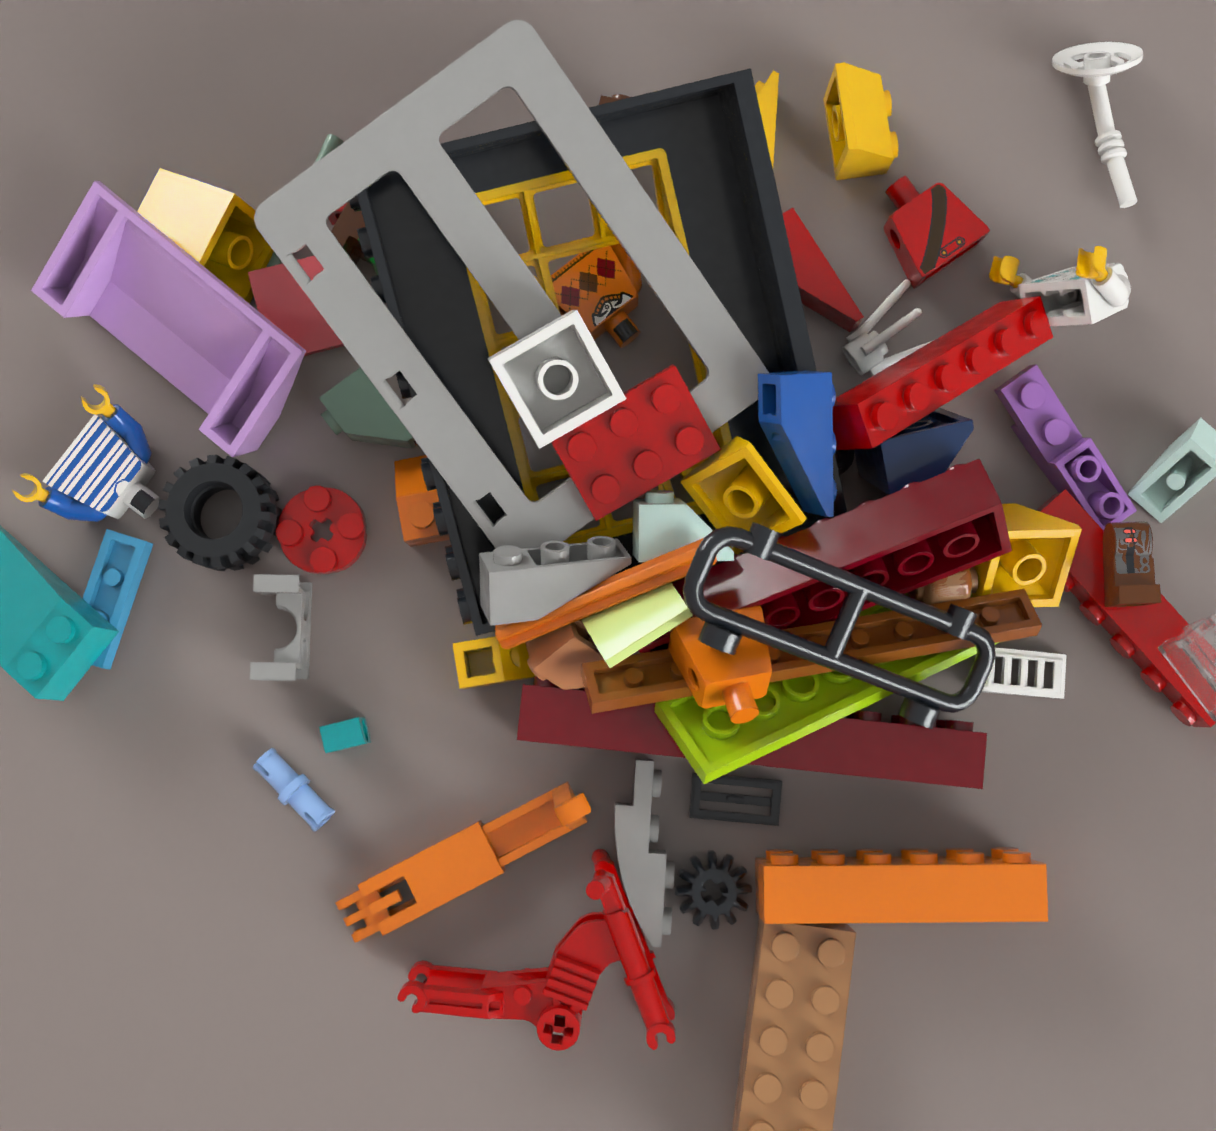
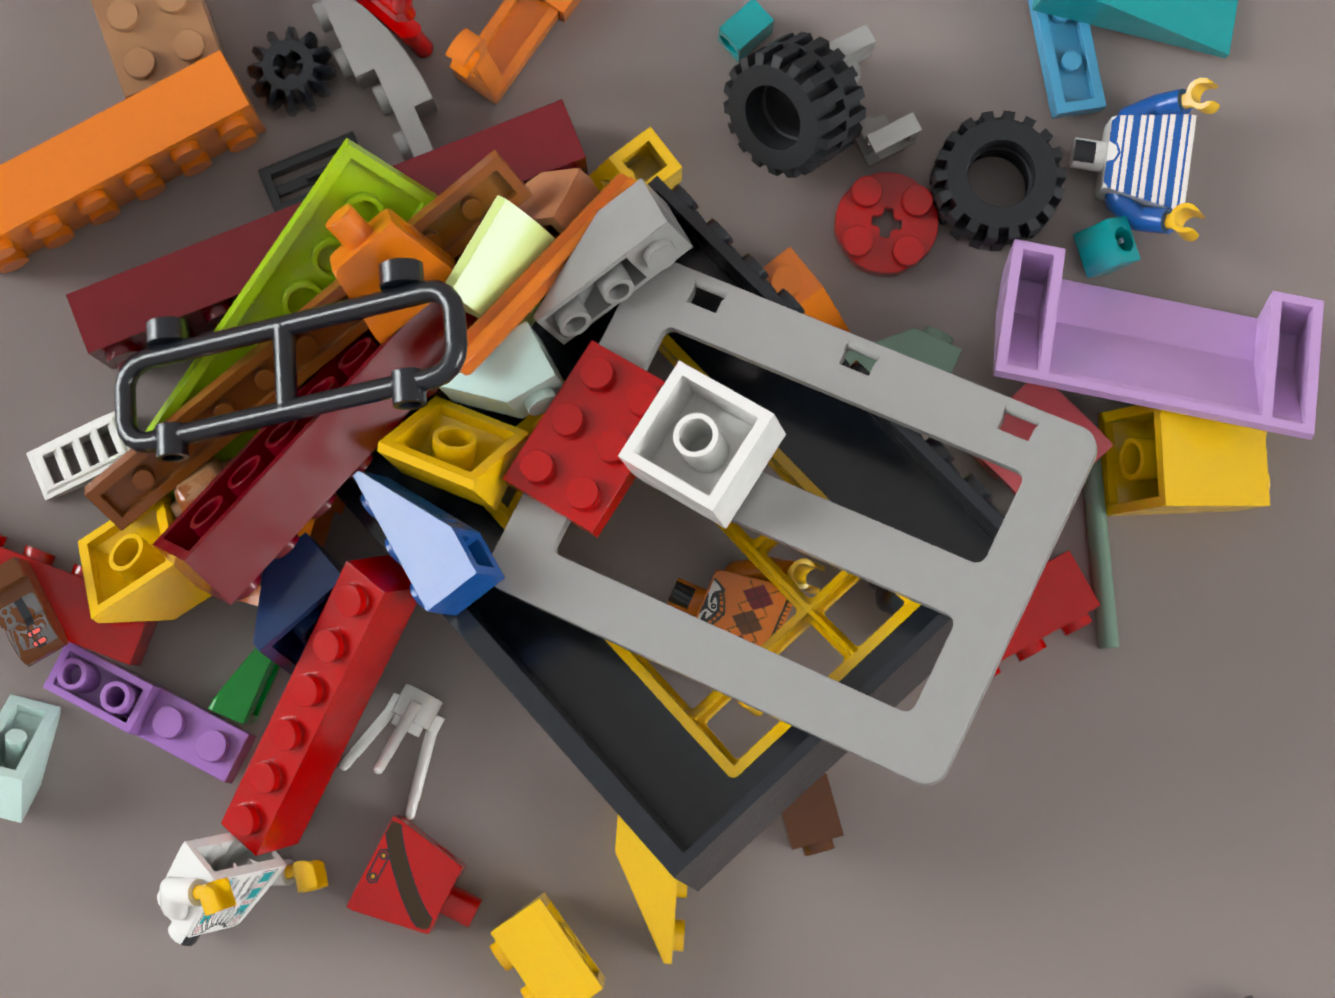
camera: 150 degrees right, 0 degrees up
(168, 422) = (1106, 246): none -> teal piece
(339, 647) = (798, 74): none -> black tyre
(816, 279) = (527, 763): red slope -> none
(990, 427) = (246, 689): none -> green slope

